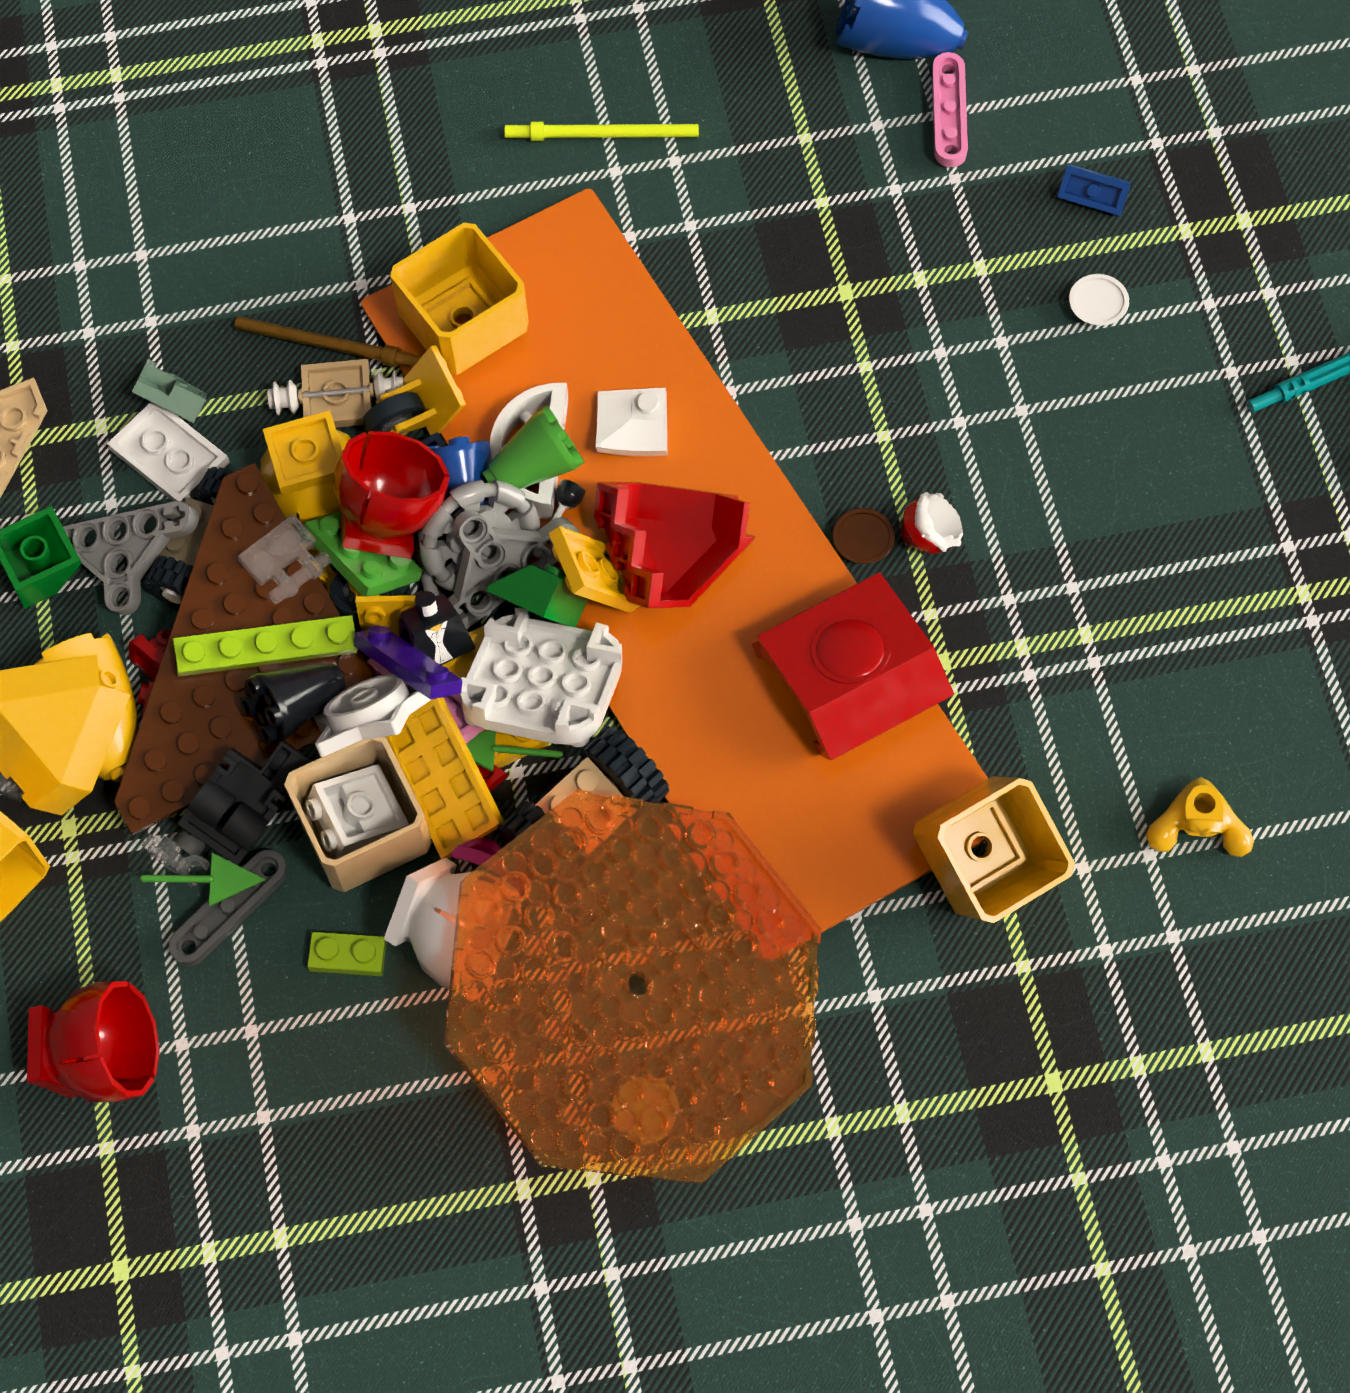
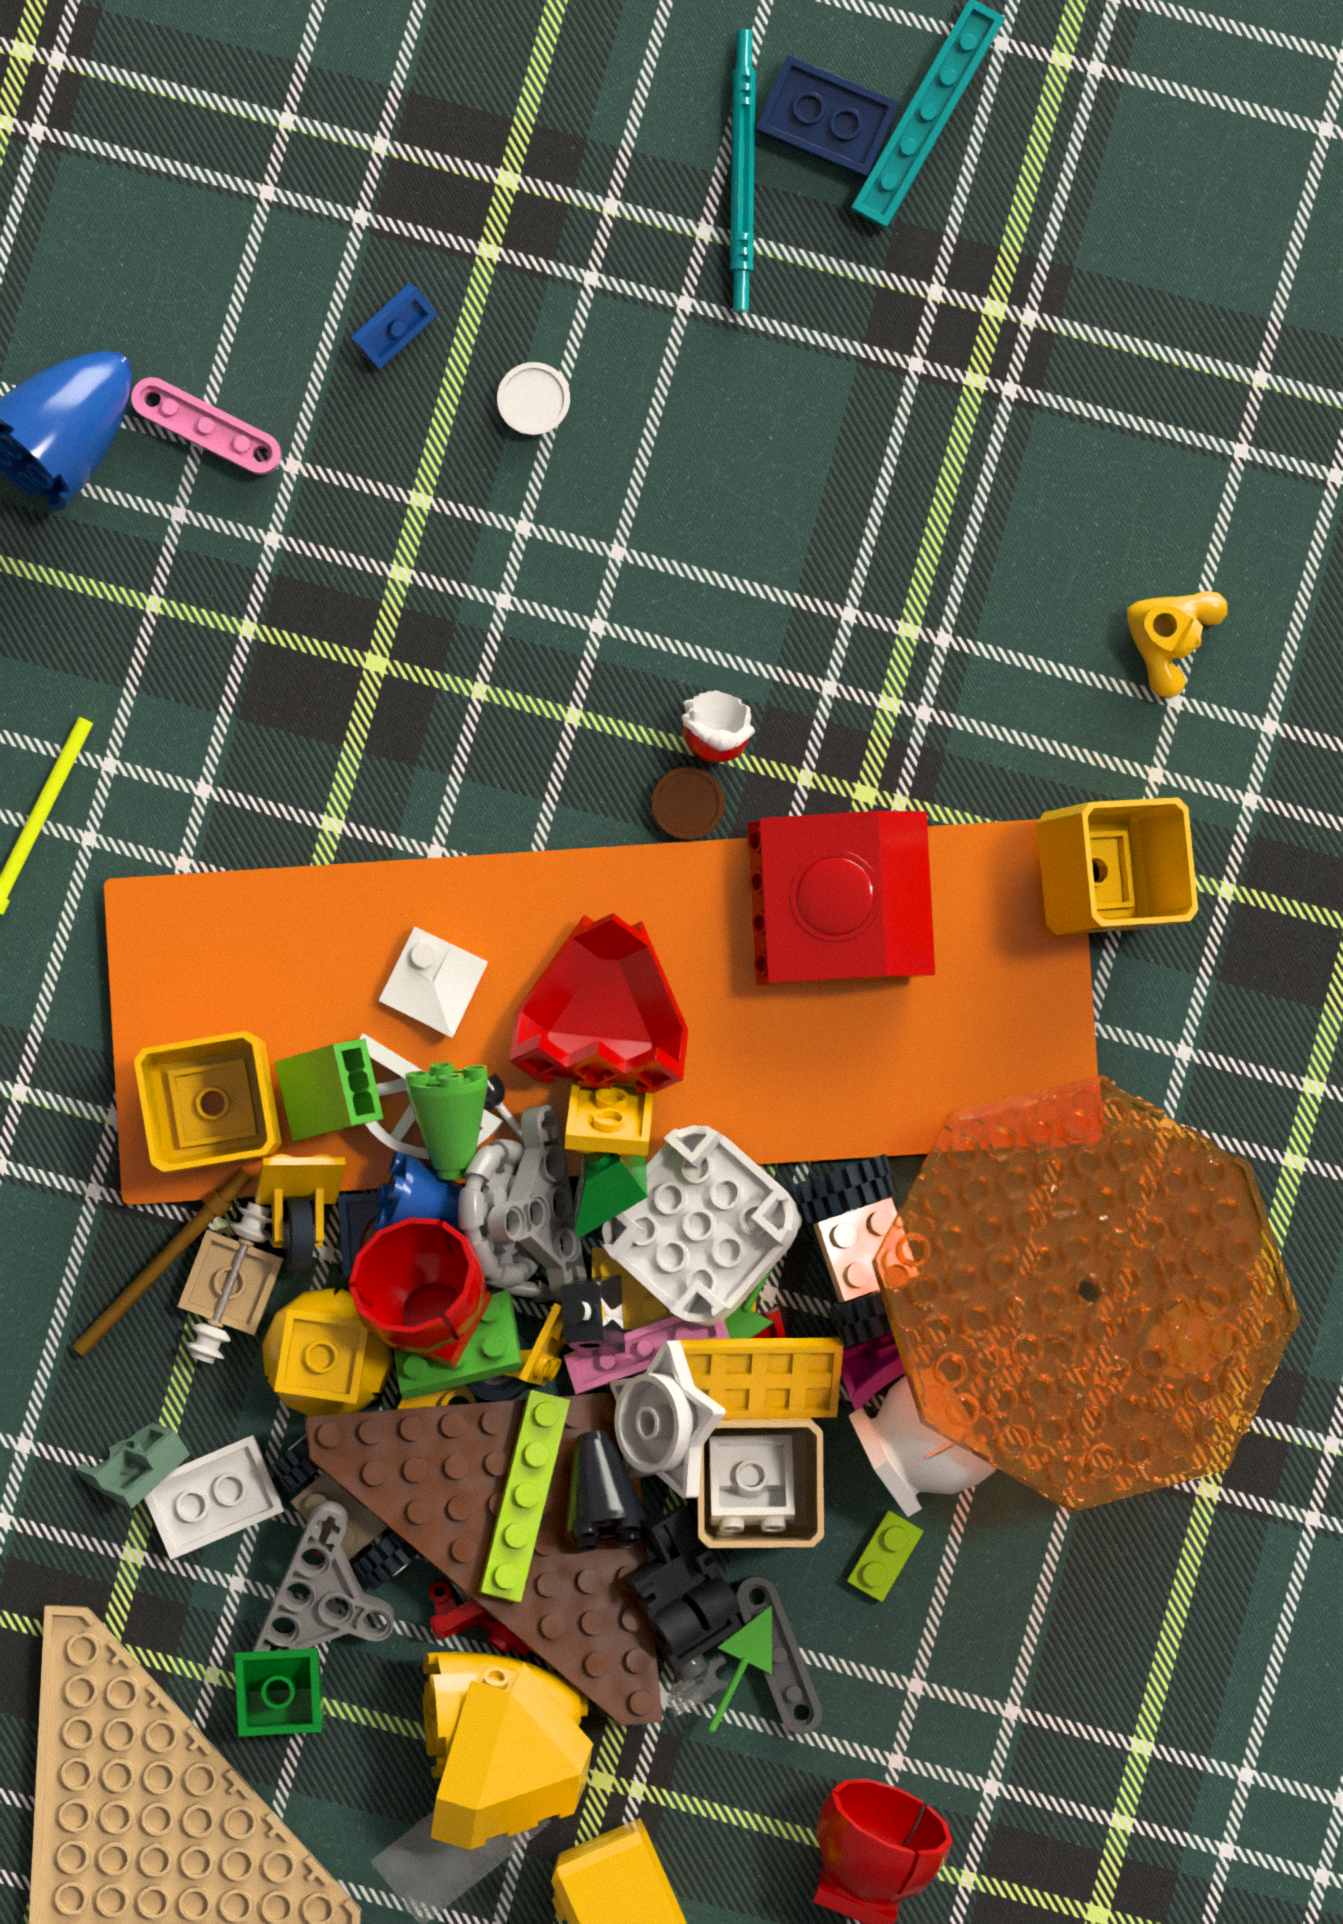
camera: 65 degrees left, 20 degrees up
(277, 551) = (428, 1438): clear plate -> none
(407, 662) = (630, 1360): dark purple plate -> none
(511, 376) = (329, 1090): none -> bright green brick

